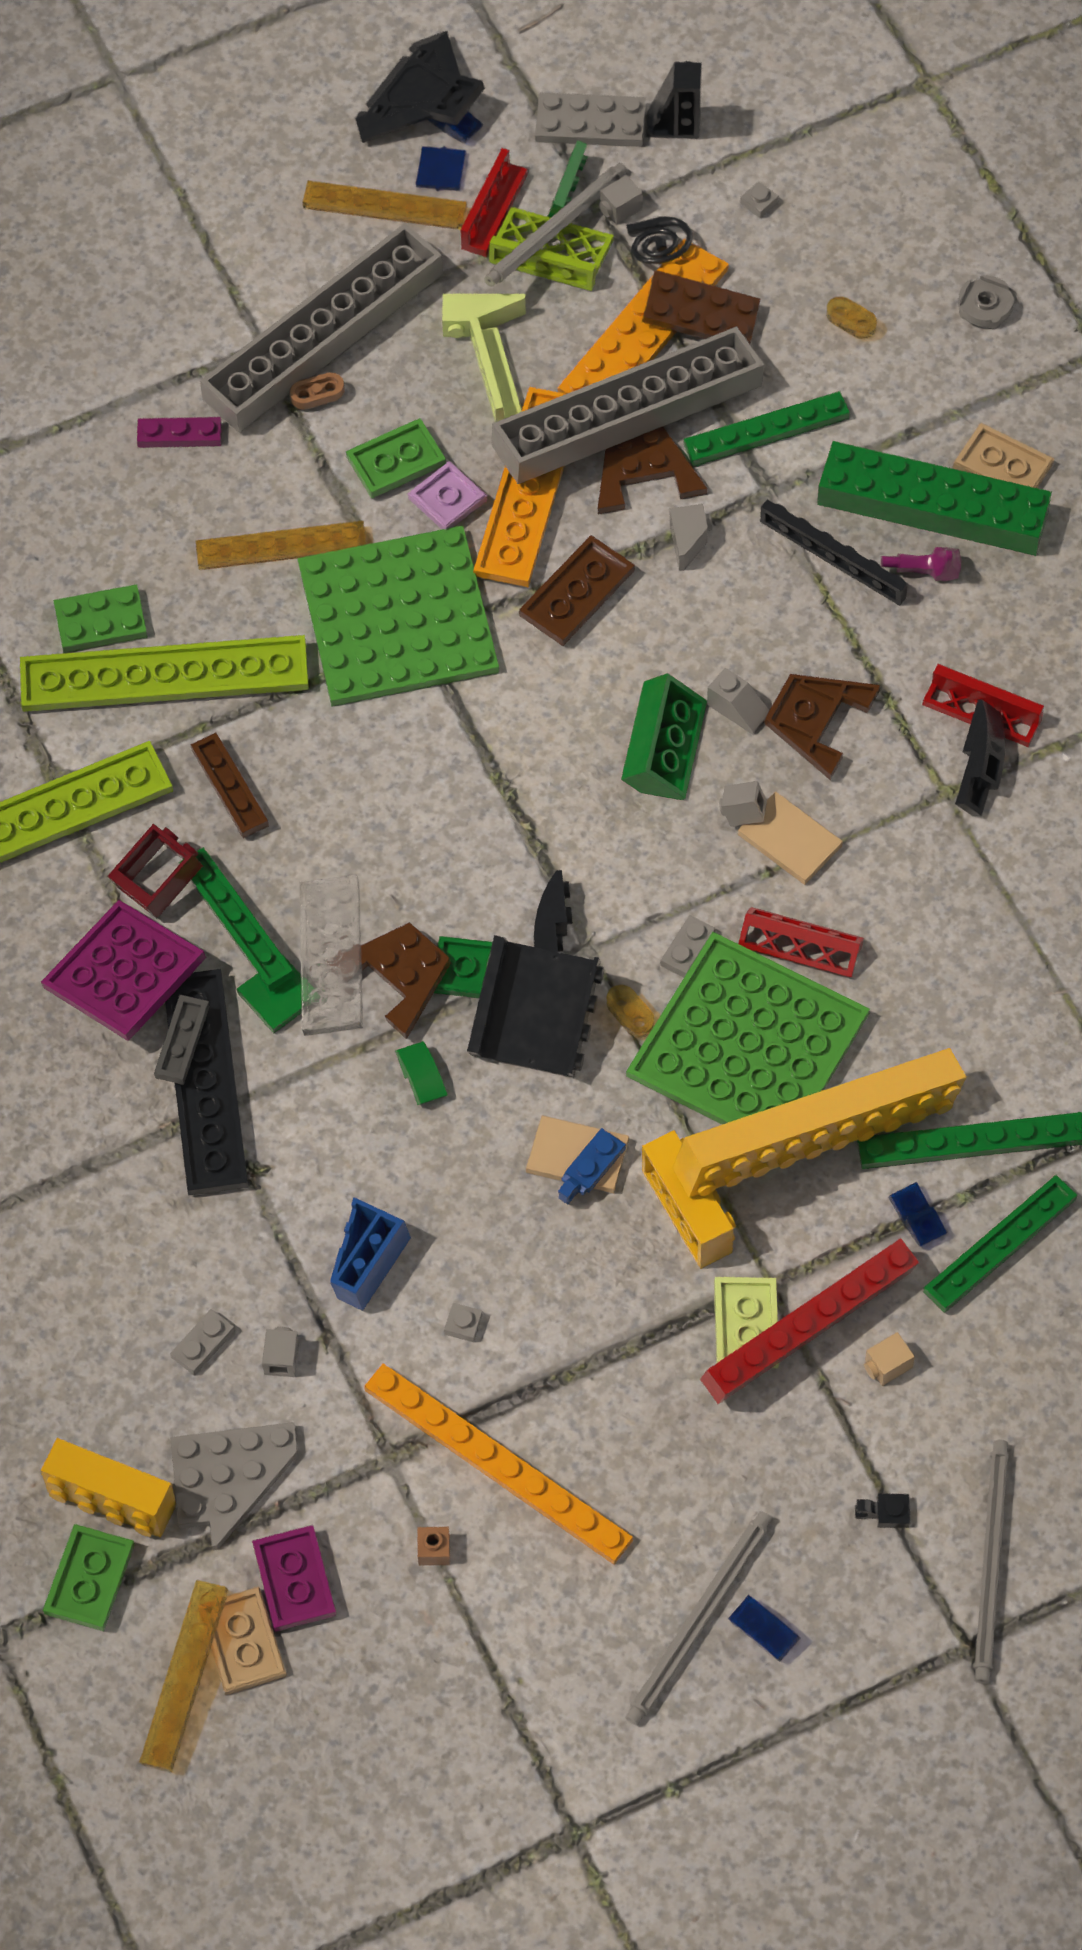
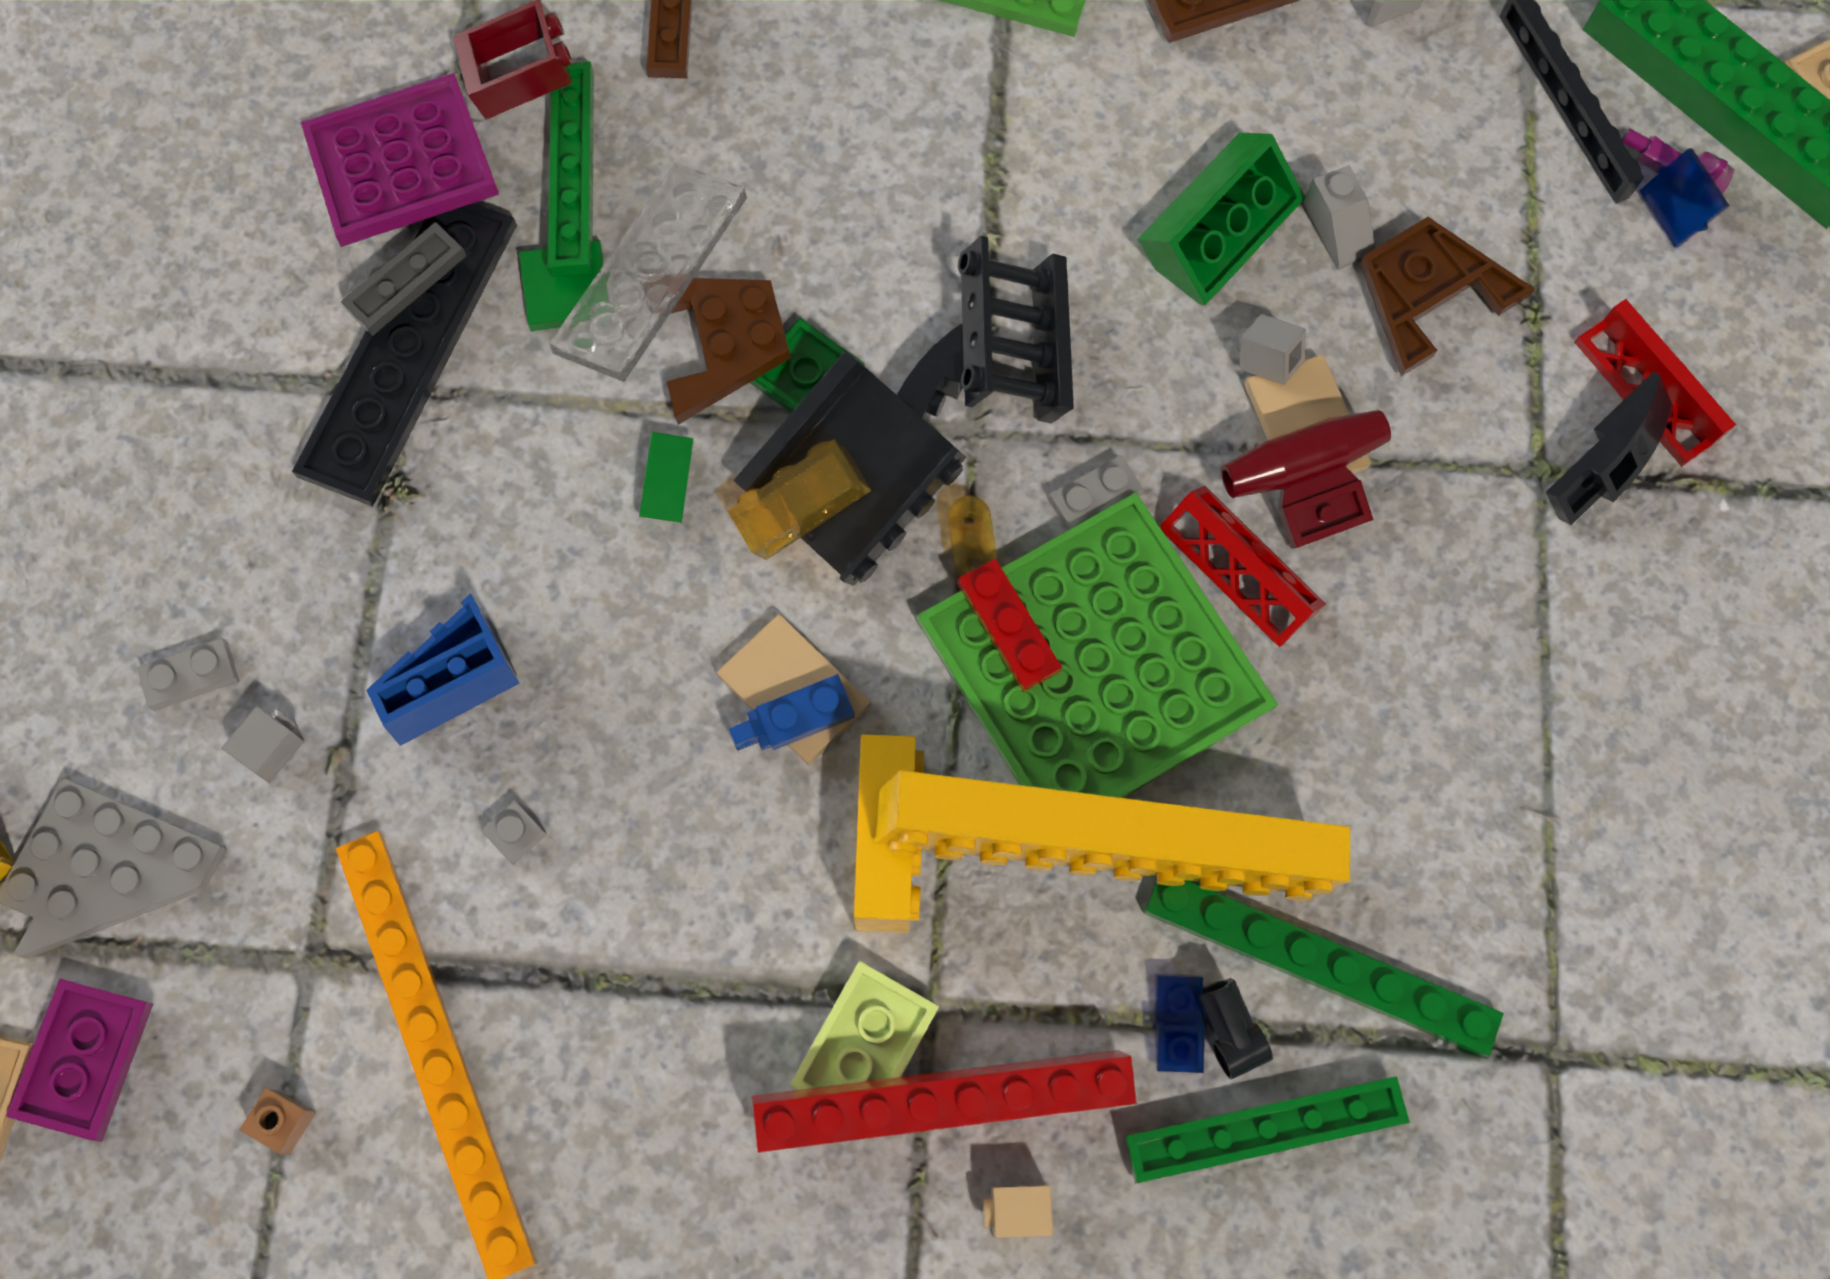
camera: 25 degrees right, 10 degrees up
(513, 1040) = (798, 499): none -> clear yellow brick
(600, 861) = (1048, 317): none -> black fence
(685, 1046) = (1009, 625): none -> red plate
(809, 862) = (1311, 472): none -> dark red plate
(938, 583) = (1684, 198): none -> clear blue piece
(957, 1204) = (1238, 1040): none -> black piece

